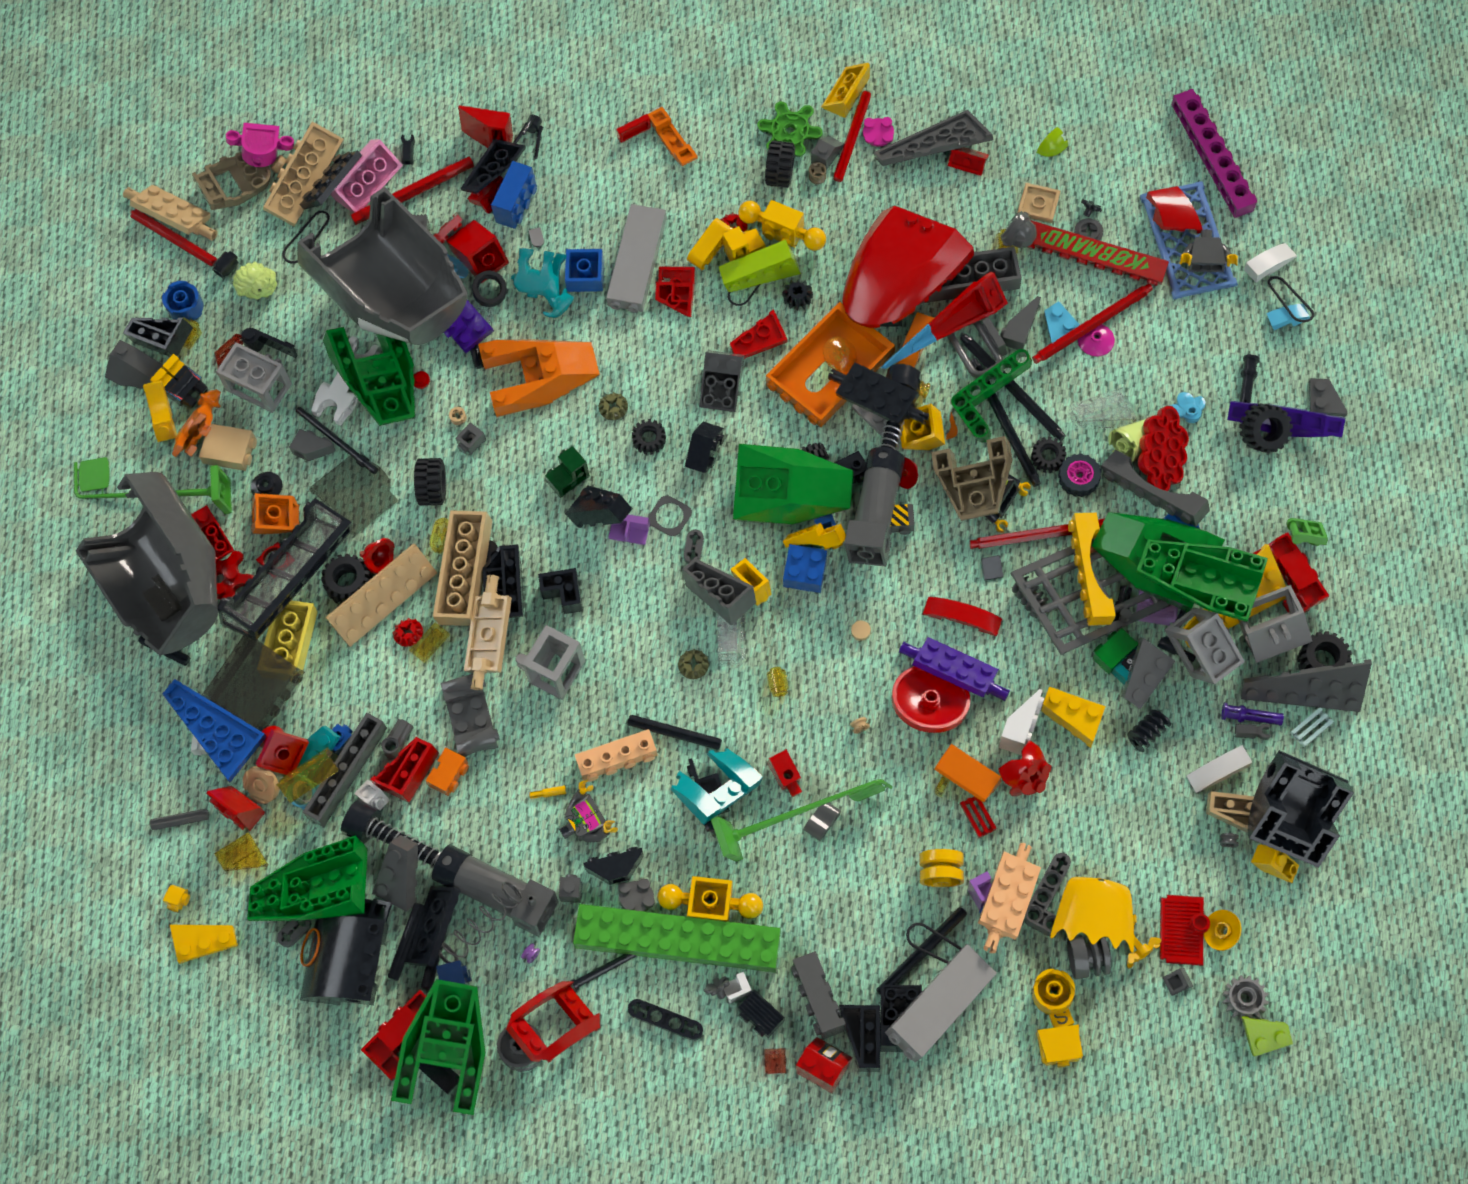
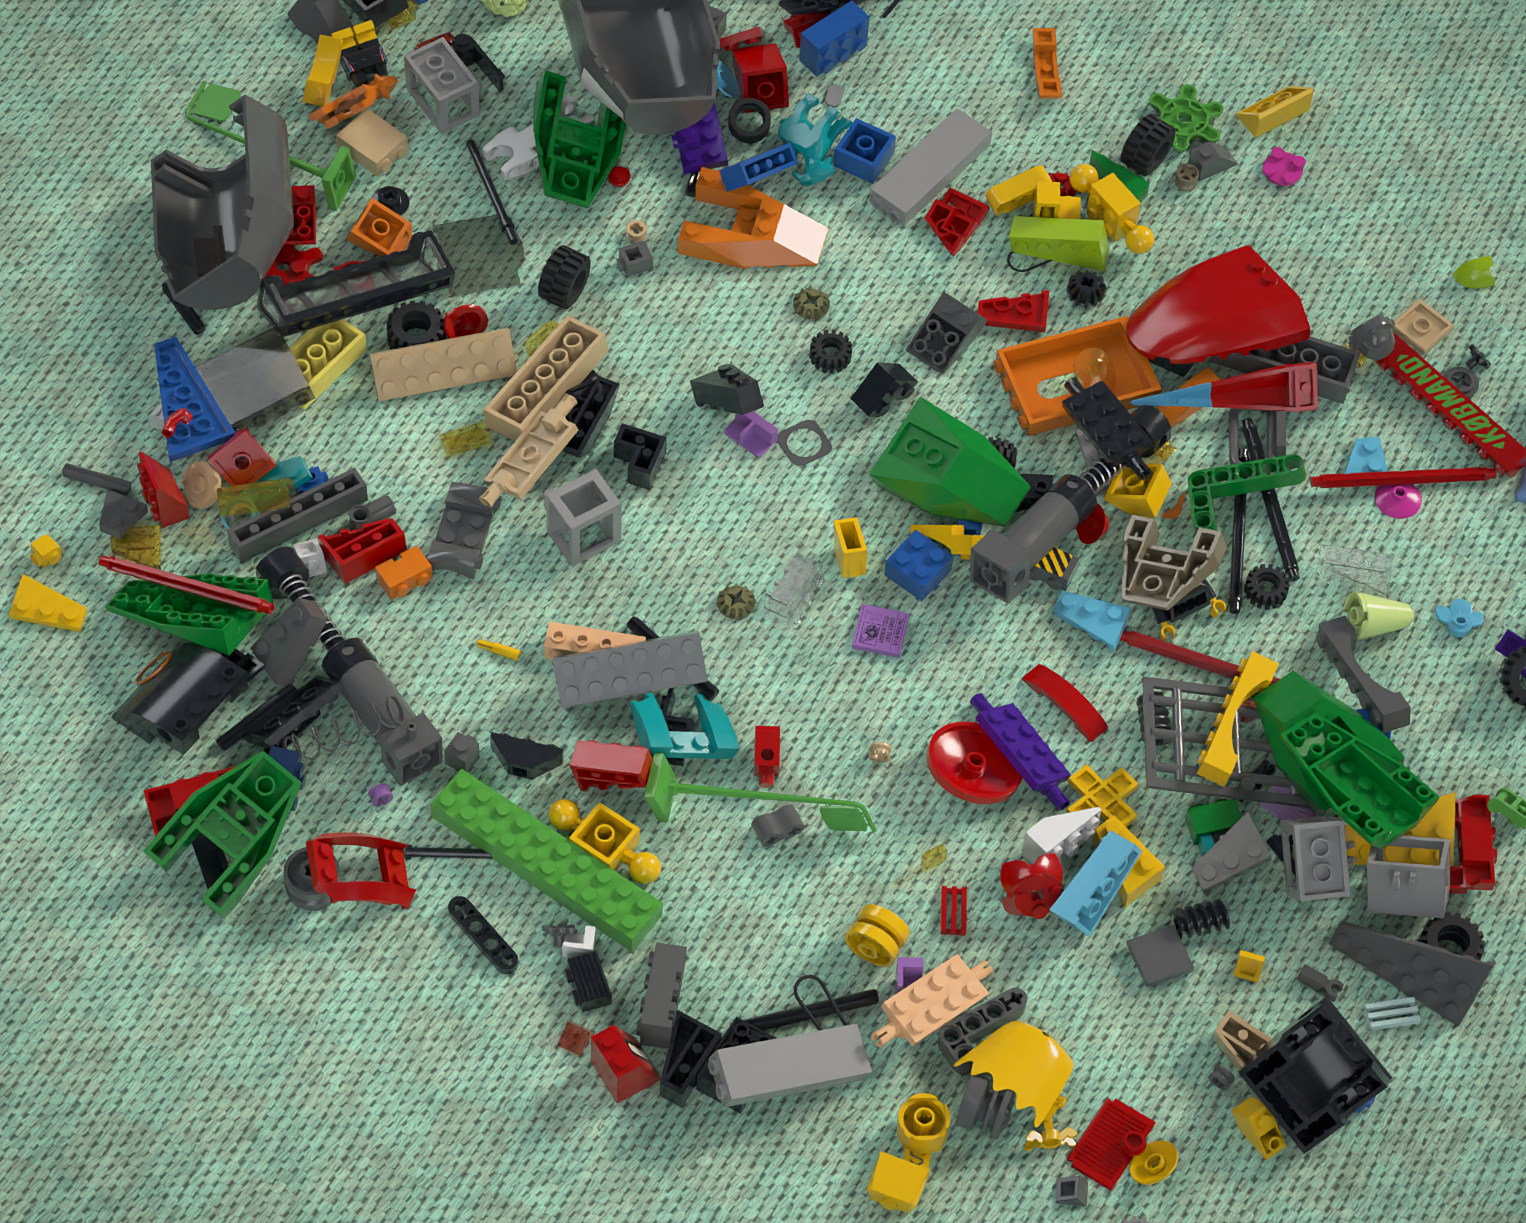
camera: 20 degrees right, 10 degrees down
(214, 839) = (120, 514): none -> dark grey wing
(217, 743) = (171, 422): none -> red arm
(296, 935) = (147, 646): dark grey beam -> none
(297, 871) = (187, 585): none -> red piece
(310, 446) = (460, 184): dark grey slope -> none
(408, 639) = (446, 423): red gear -> none
(520, 324) = (758, 167): none -> blue brick
(569, 473) = (719, 344): dark green brick -> none
(585, 818) = (523, 690): torso -> none
(633, 128) = (1009, 35): red tile -> none
(636, 895) = (530, 795): dark grey piece -> none
(654, 761) = (630, 669): none -> dark grey brick
(684, 843) = (609, 765): none -> wedge
(689, 545) = (806, 482): dark grey beam -> none
(719, 590) = (809, 536): dark grey wedge -> none
(764, 196) = (1135, 184): none -> green slope
(777, 681) = (816, 663): clear yellow brick -> none
(806, 631) = (880, 631): none -> medium lavender tile
(852, 136) = (1250, 159): red axle -> none
(860, 630) = (942, 660): tan tile -> none
(946, 135) = (1356, 206): dark grey wing -> none
(946, 541) = (1098, 618): none -> medium azure wing
(968, 160) = (1367, 244): red panel -> none
(968, 773) = (968, 857): orange slope -> none
(992, 567) = (1129, 669): black slope -> none
(1019, 326) = (1320, 439): dark grey slope -> none
(1029, 674) = (1104, 794): none -> yellow plate
(1068, 745) = (1096, 883): none -> medium azure wedge
(1074, 466) = (1289, 612): black wheel -> none
(1136, 772) = (1160, 956): none -> dark grey tile
(1163, 448) = (1401, 641): red plate -> none
(1200, 746) = (1249, 966): none -> yellow tile
(1219, 769) = (1257, 1000): white slope -> none
(1254, 715) = (1319, 958): dark purple pin -> none

